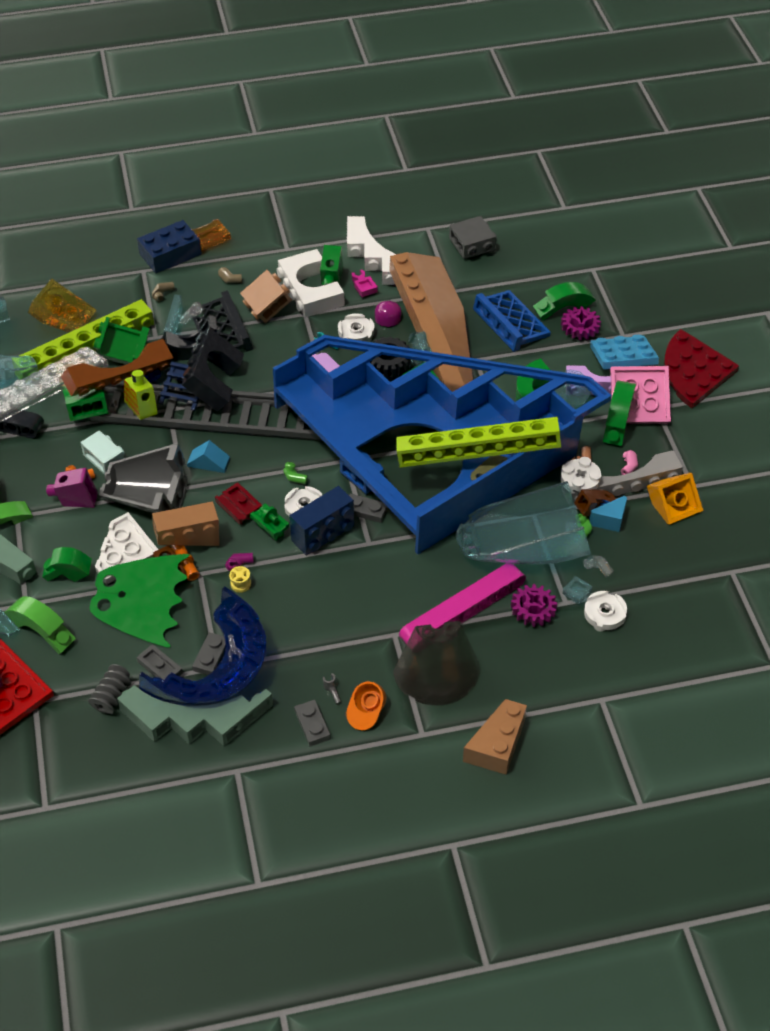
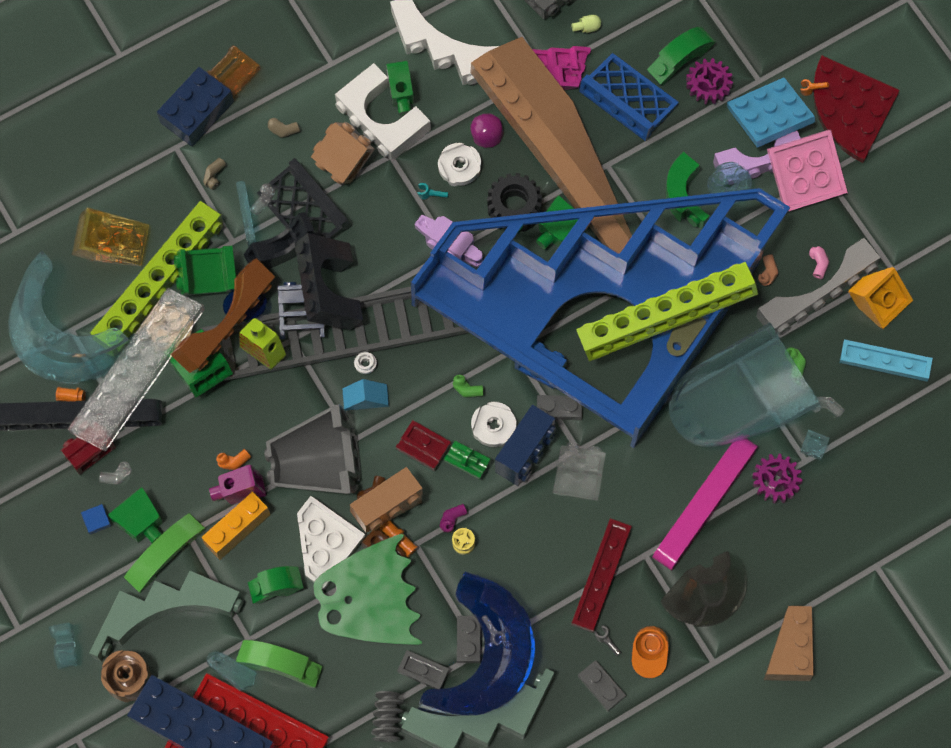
camera: 15 degrees left, 20 degrees up
(56, 516) = (236, 525): none -> light orange brick
(101, 450) = (248, 425): light aqua brick -> none
(219, 436) = (365, 356): none -> white plate
(347, 637) = (601, 575): none -> dark red plate
(362, 556) = (579, 471): none -> clear plate
(364, 285) = (444, 95): dark pink plate -> none
(419, 342) = (546, 179): clear light blue plate -> none
(468, 287) = (565, 64): none -> dark pink slope
(497, 268) = (587, 24): none -> yellowish green cylinder
(581, 467) = (779, 292): white plate -> none
(594, 499) = (800, 329): reddish brown leg -> none
(601, 620) = (850, 448): white plate -> none
(609, 515) = (821, 340): dark azure slope -> none
(619, 412) = (794, 195): green arch -> none
(661, 346) = (811, 86): none -> orange hand
(664, 545) = (886, 360): none -> medium azure plate

